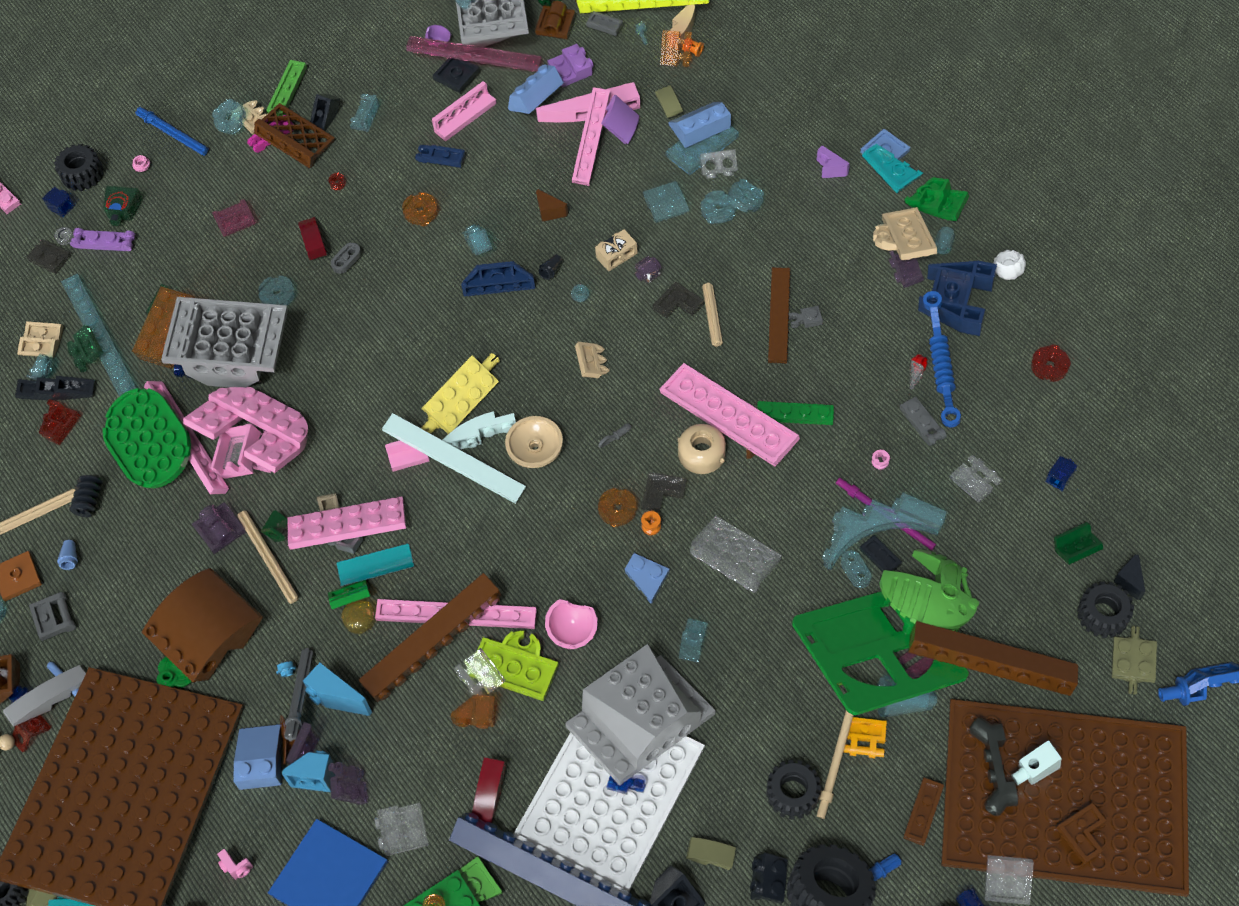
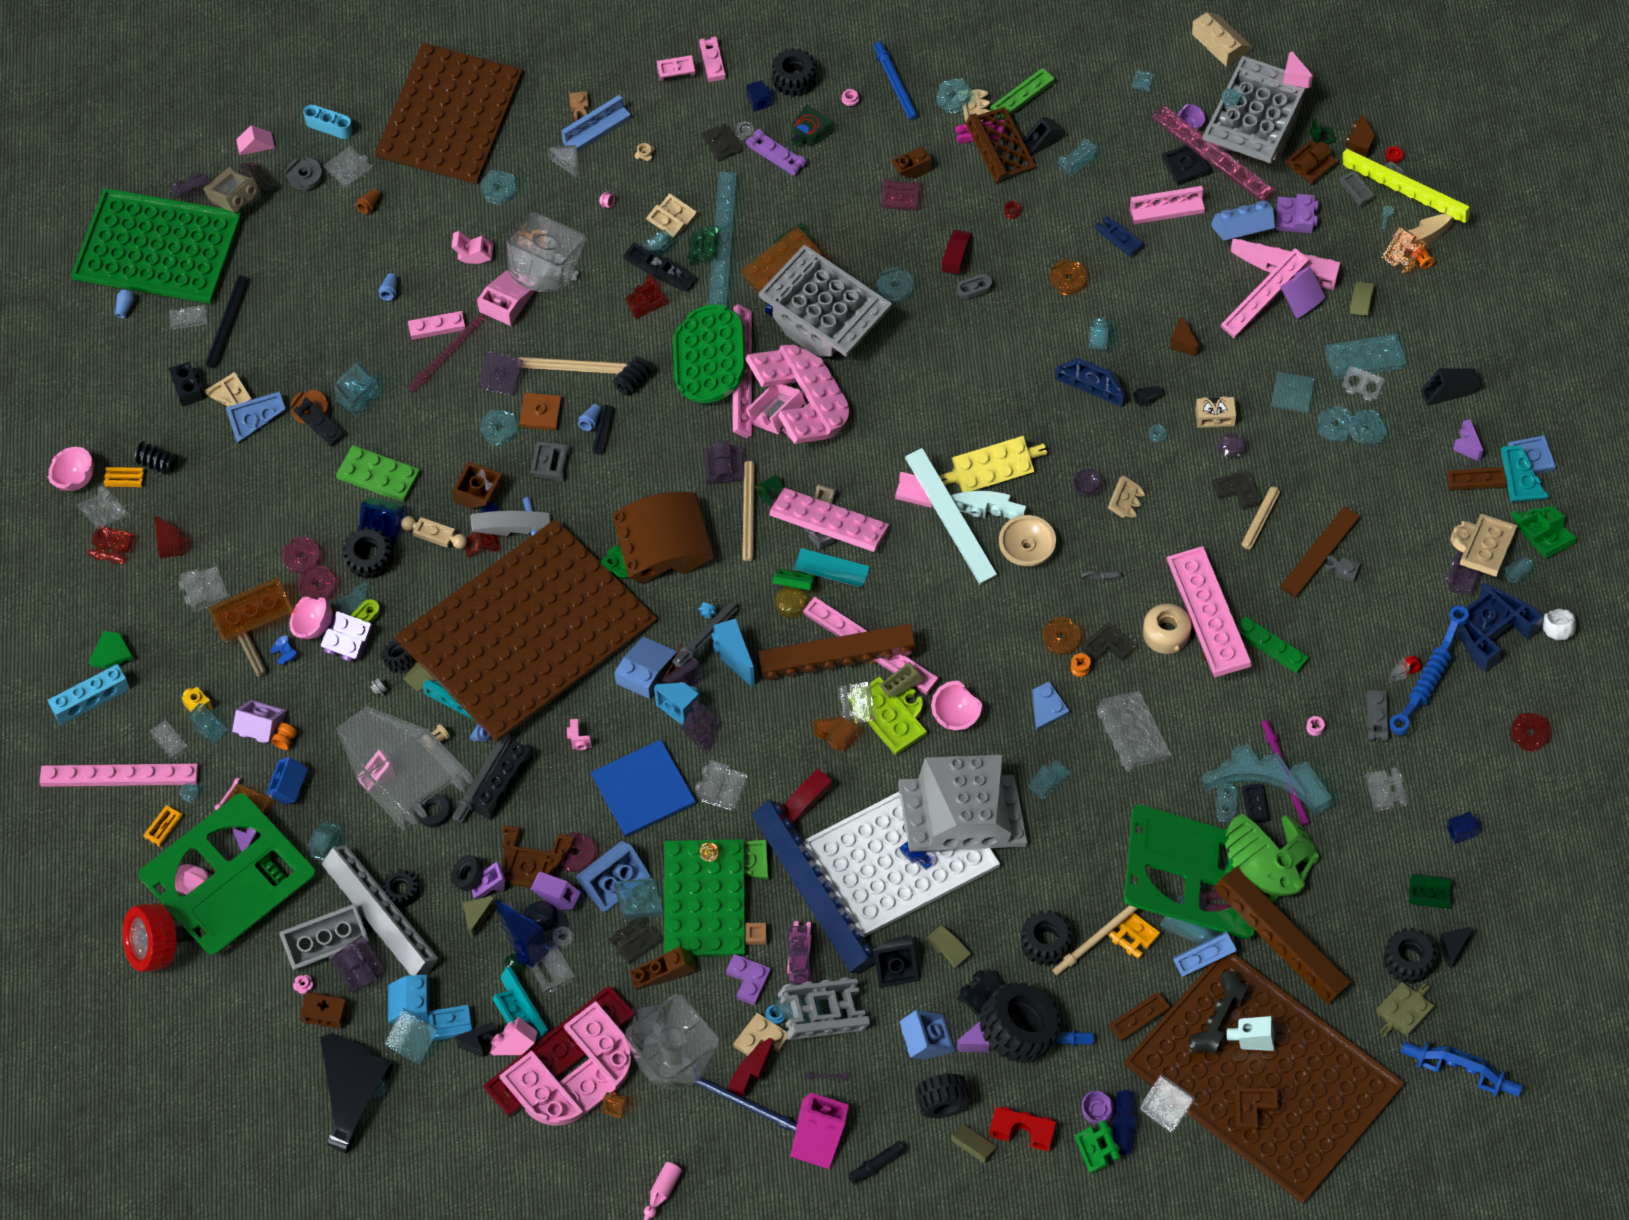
camera: 30 degrees right, 0 degrees up
(86, 559) = (602, 429): none -> black axle
(230, 186) = (913, 163): none -> reddish brown slope
(378, 30) = (1142, 81): none -> clear light blue plate
(504, 621) = (910, 676): none -> olive slope
(550, 364) = (1087, 482): none -> clear purple hair
(701, 123) = (1373, 337): medium blue slope -> none
(785, 129) = (1450, 385): none -> black slope
(858, 189) = (1476, 478): none -> reddish brown plate
(940, 716) = (1204, 953): none -> medium blue plate

